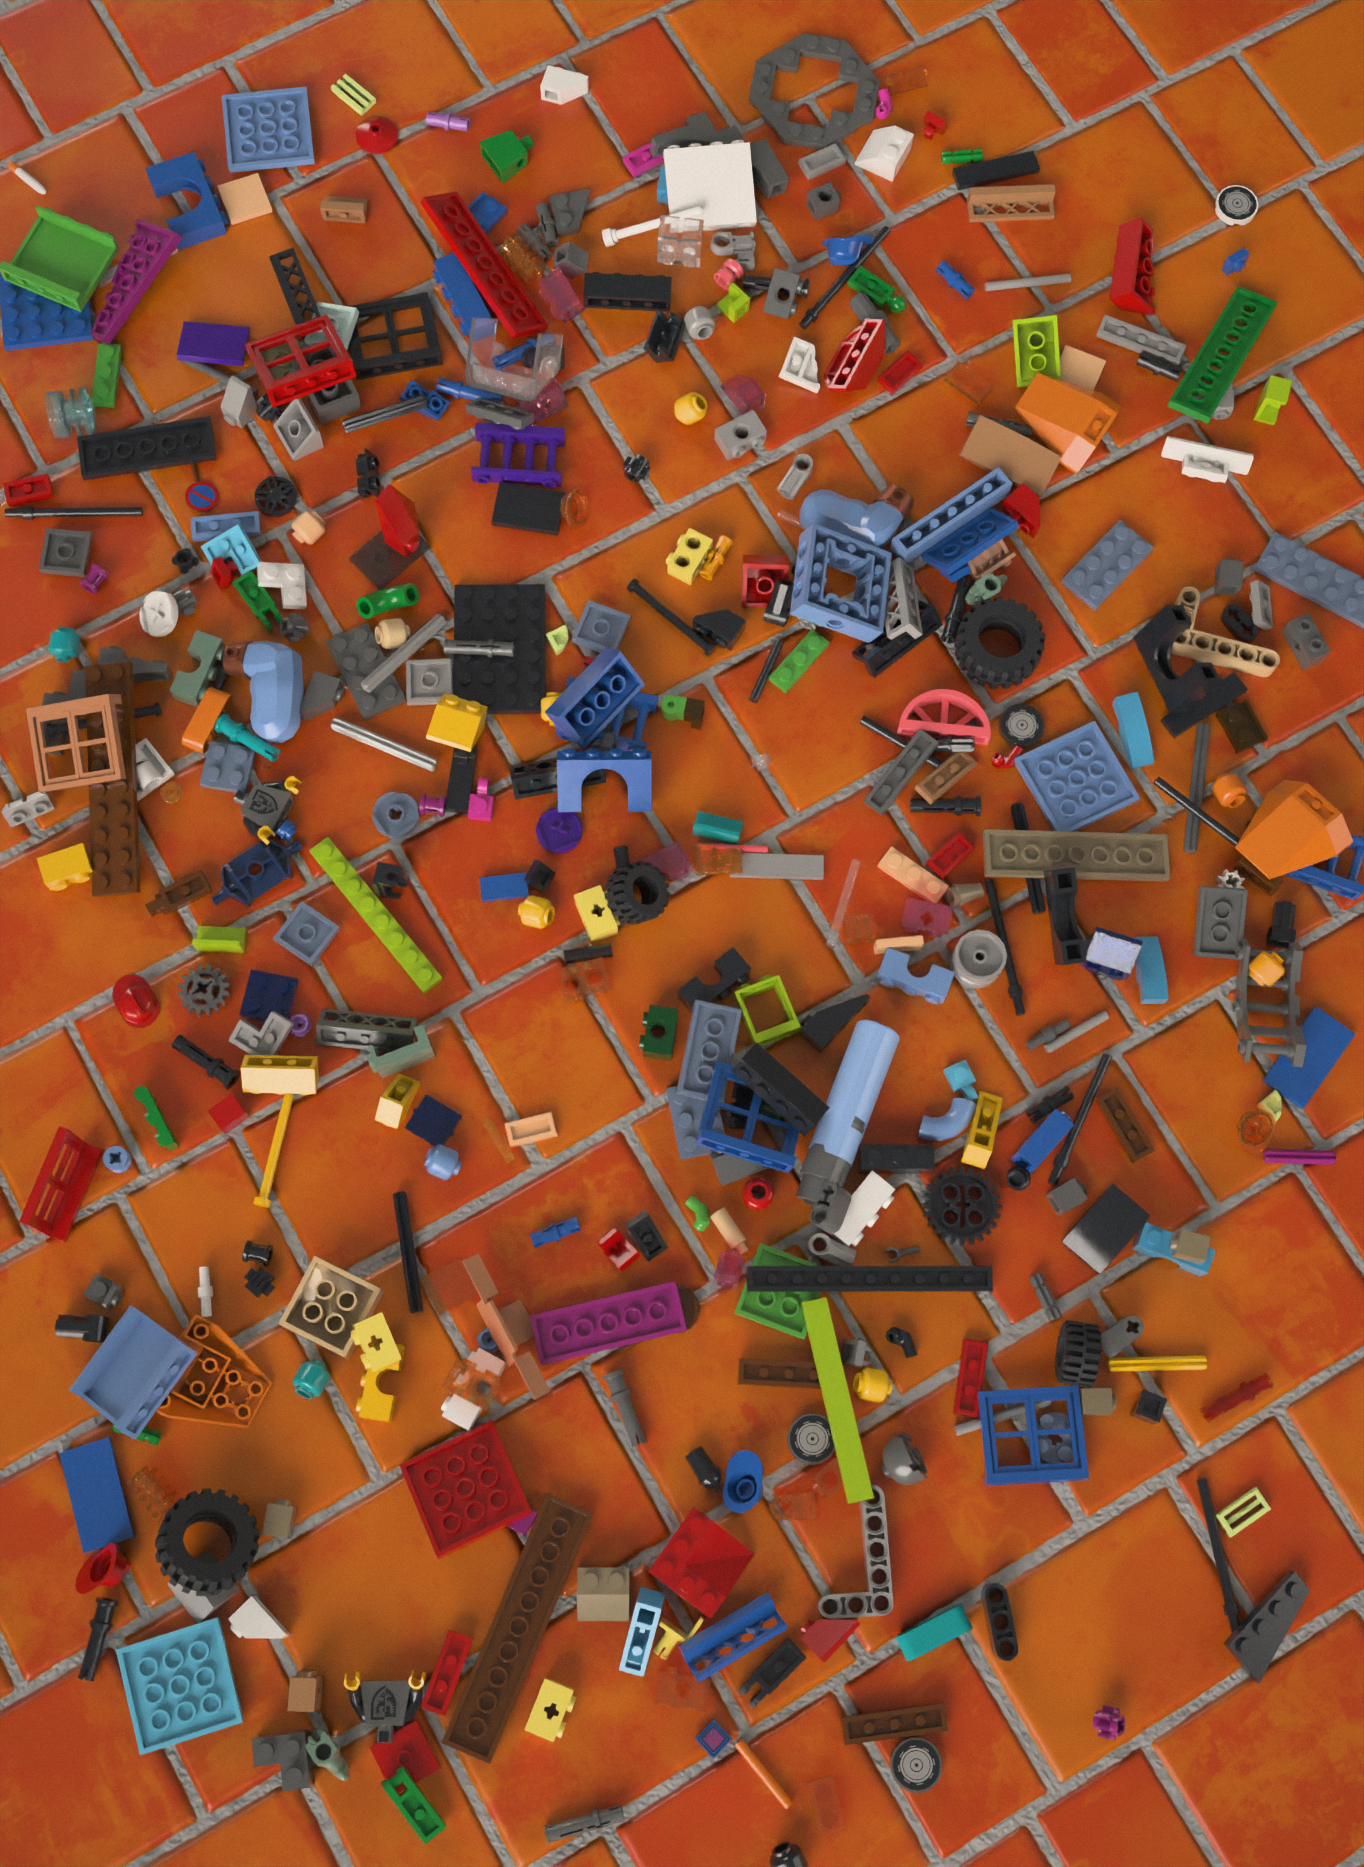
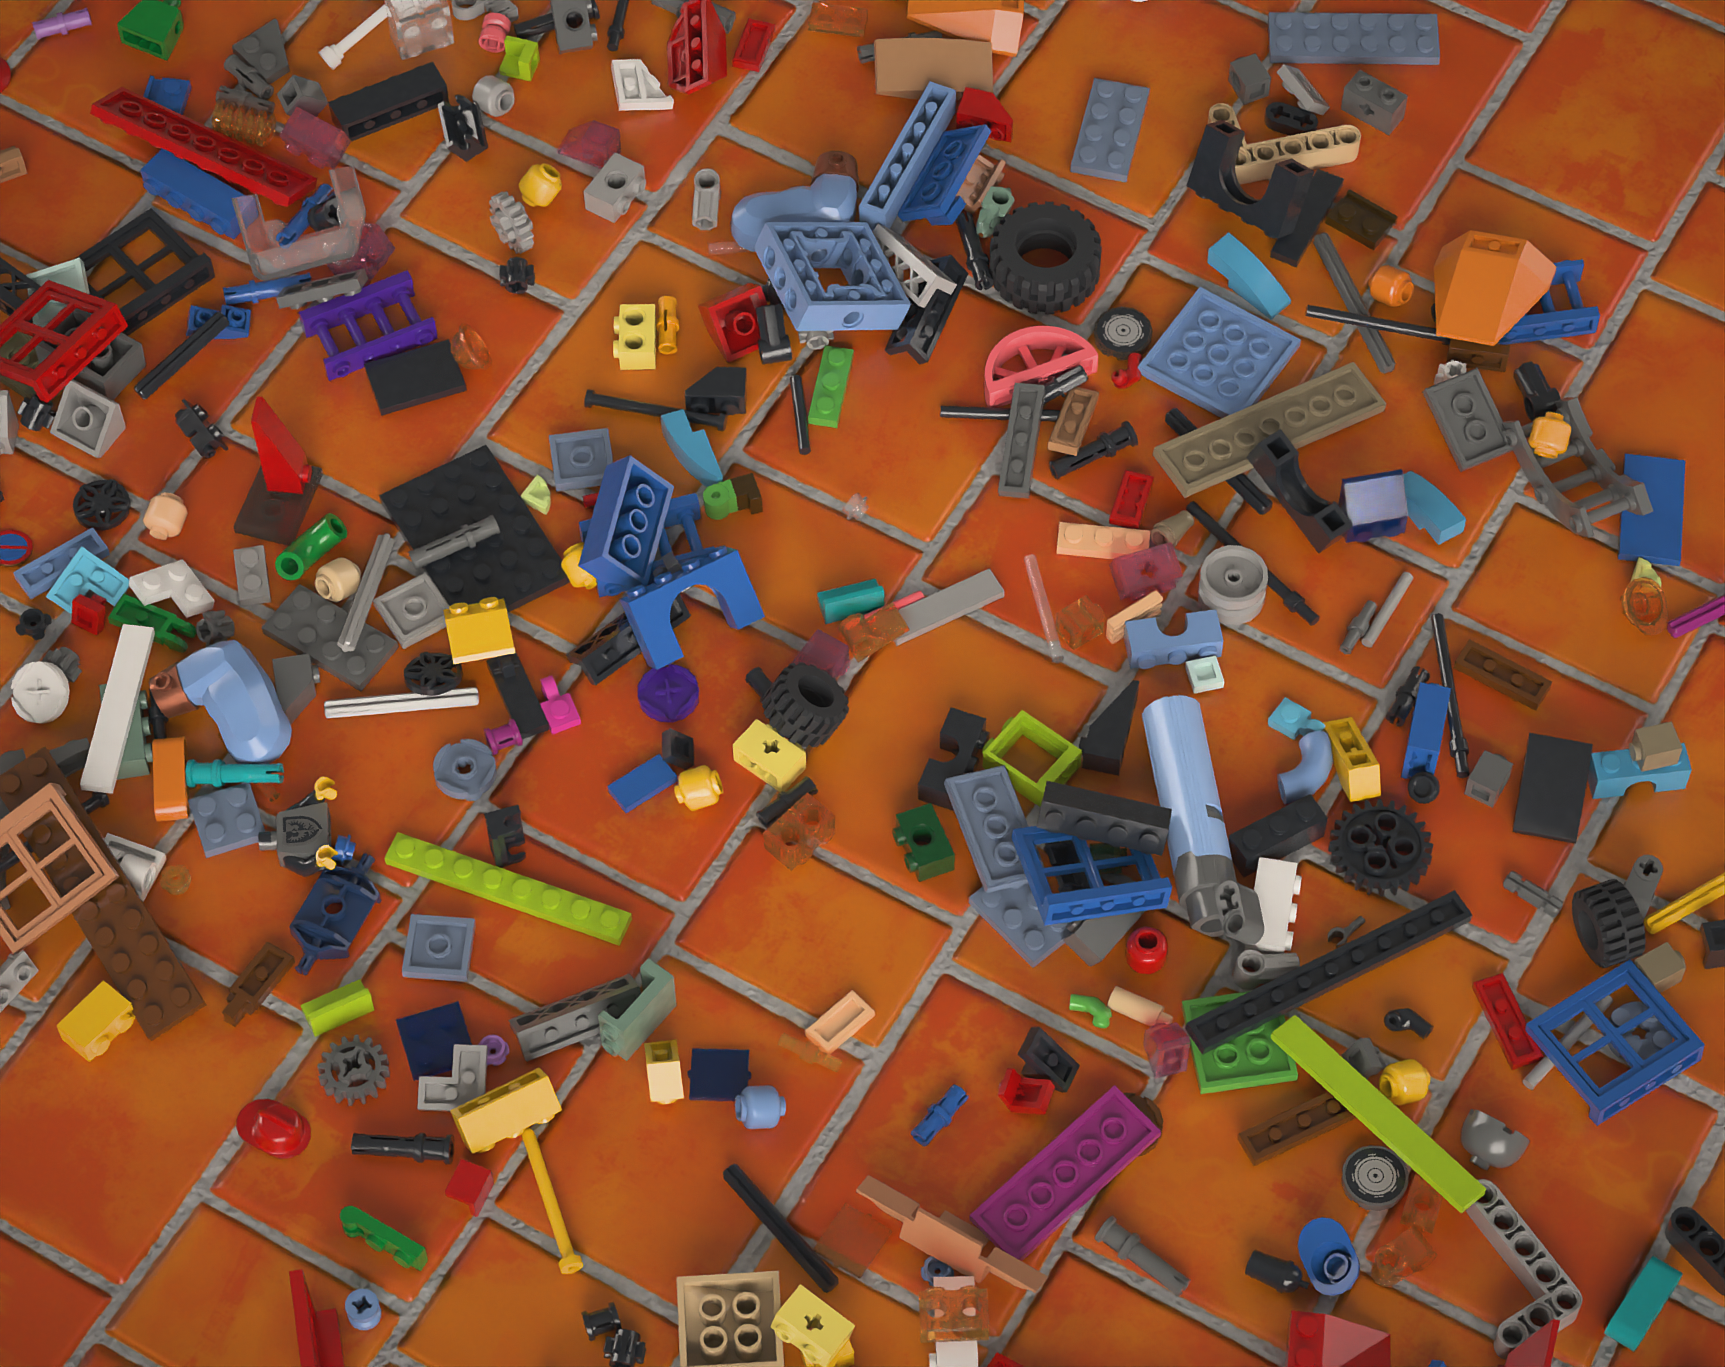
camera: 25 degrees left, 15 degrees down
(196, 654) = (117, 709): none -> white tile
(341, 599) = (252, 575): none -> light grey plate
(413, 735) = (432, 674): none -> black wheel
(653, 428) = (511, 222): none -> light grey gear
(677, 659) = (691, 448): none -> dark azure slope
(920, 1012) = (1204, 674): none -> light aqua plate

